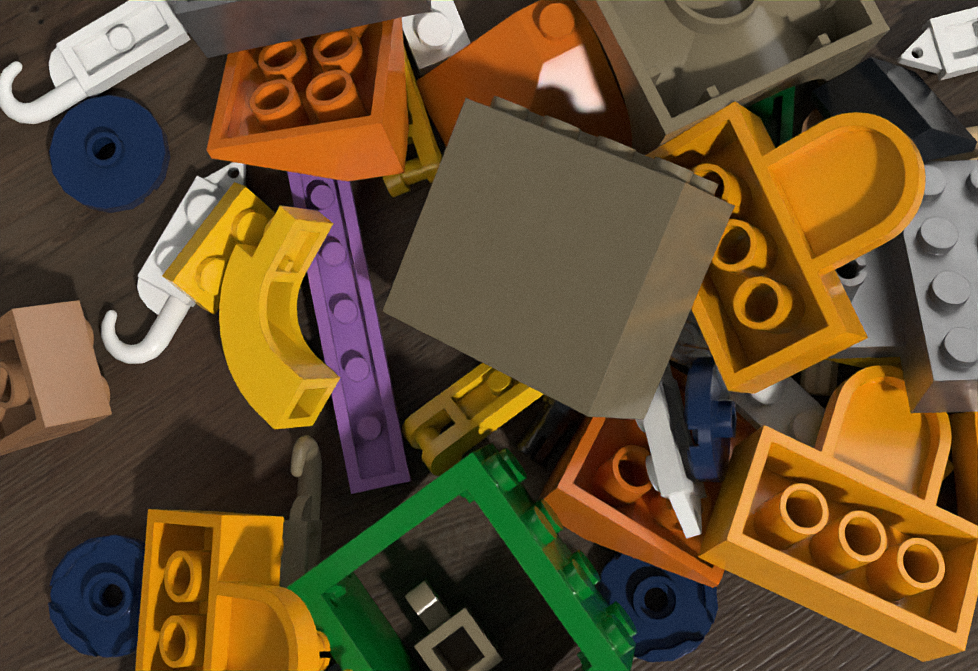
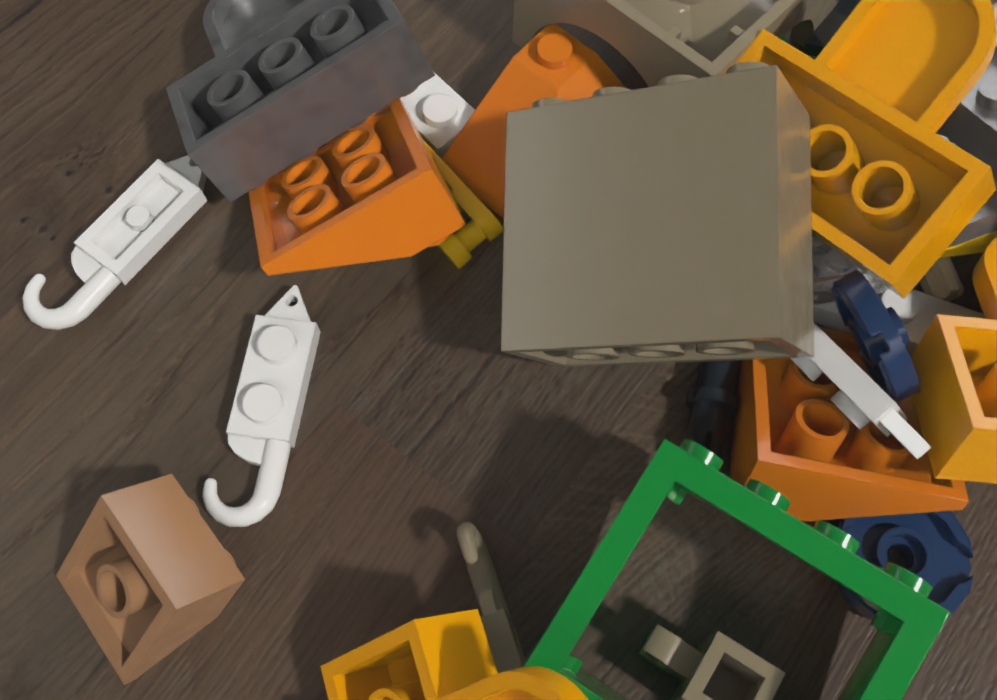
camera: 20 degrees left, 15 degrees down
(132, 171) = (173, 351): dark blue plate -> none
(203, 261) = (307, 371): yellow plate -> none
(262, 326) = (372, 425): yellow arch -> none
(352, 339) = (469, 409): medium lavender plate -> none
(477, 408) = (626, 431): yellow plate -> none

